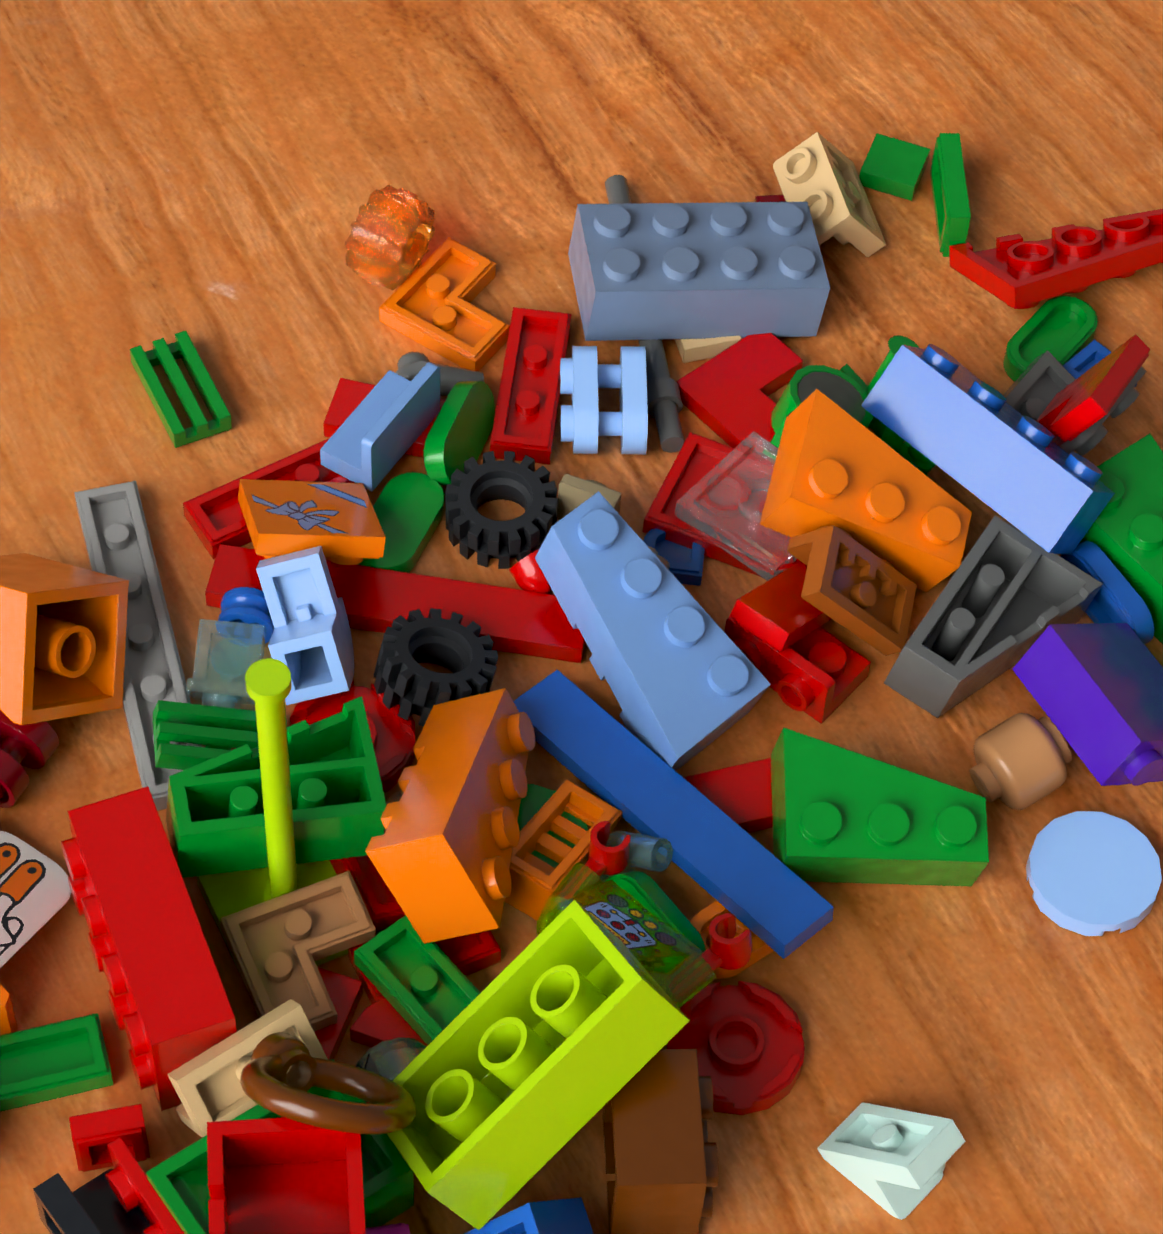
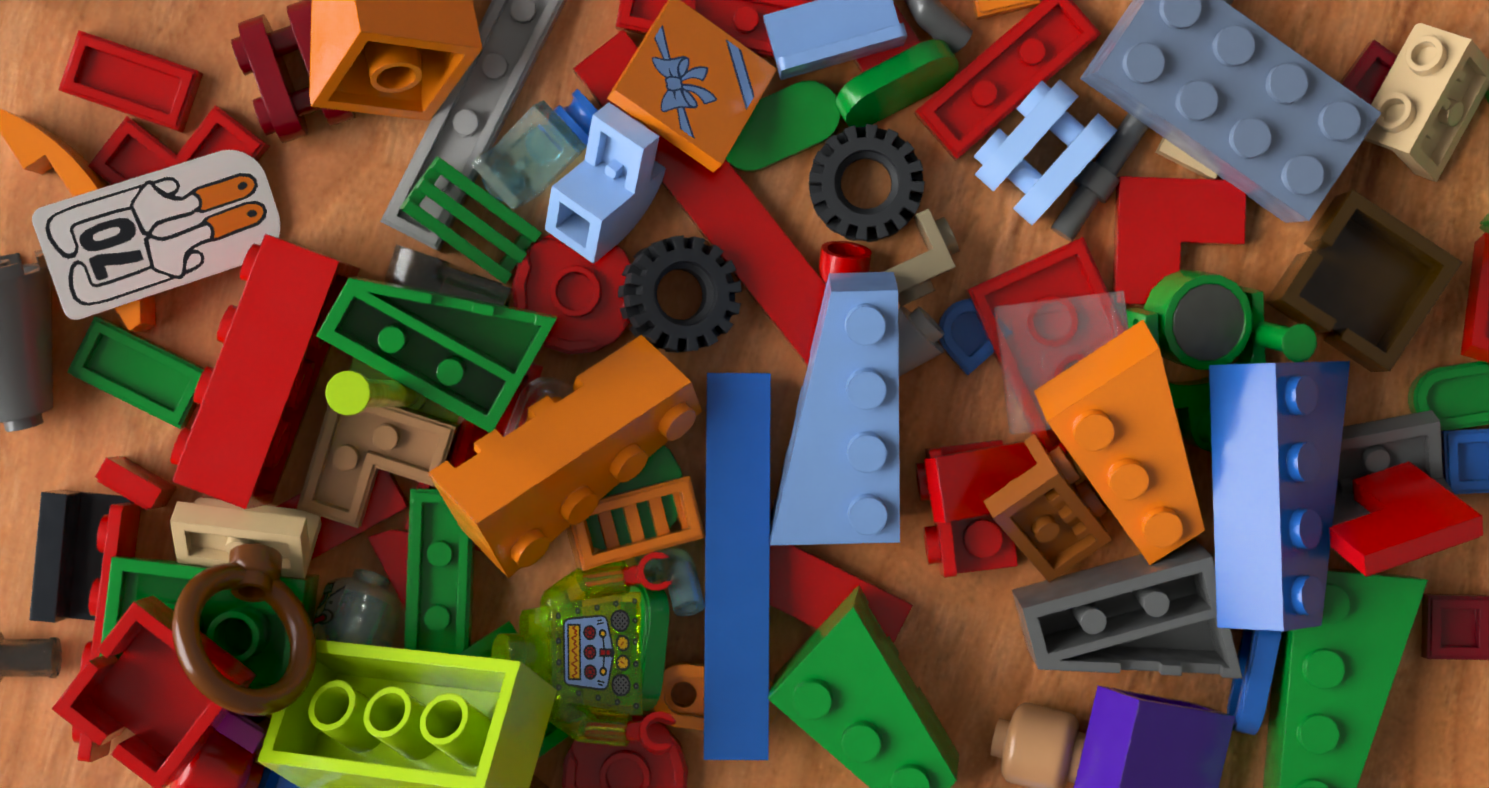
camera: 45 degrees right, 35 degrees up
(907, 293) = (1364, 281): none -> dark brown piece

